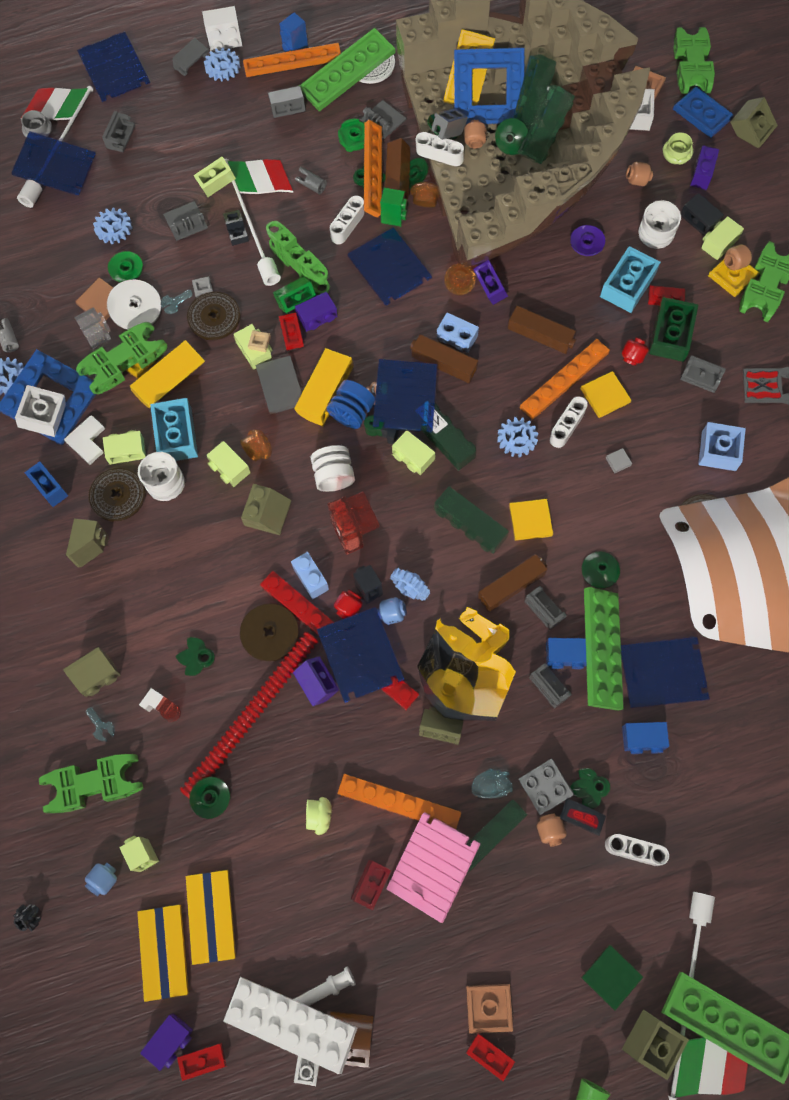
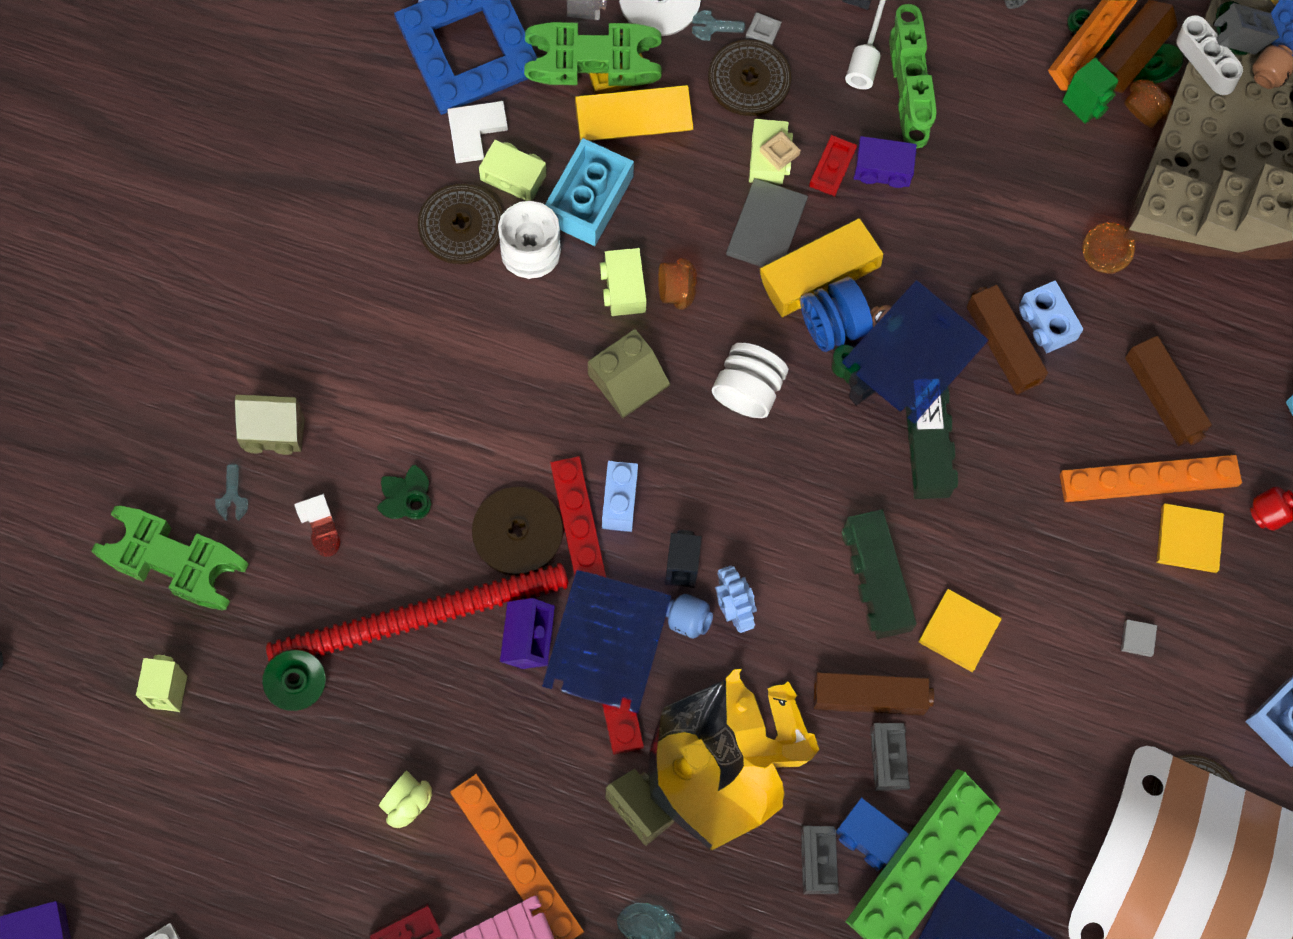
camera: 30 degrees right, 0 degrees up
(40, 410) = (443, 54): white brick -> none
(46, 484) = (384, 151): blue brick -> none
(86, 541) = (378, 256): olive slope -> none
(101, 879) = (97, 680): medium blue head -> none
(162, 953) = (103, 823): yellow tile -> none
(210, 917) = (189, 824): yellow tile -> none
(294, 294) = (872, 120): green brick -> none
(347, 219) = (1010, 76): white beam -> none
(348, 604) = (640, 567): red head -> none
(351, 520) = (722, 463): clear red brick -> none
(389, 266) = (1029, 166): clear blue door -> none
(413, 453) = (870, 434): yellowish green brick -> none
(490, 282) = (1146, 280): dark purple brick -> none
(519, 444) = (1018, 521): light blue gear -> none
(570, 414) = (1119, 529): white beam -> none
(597, 577) = (992, 773): dark green dish -> none

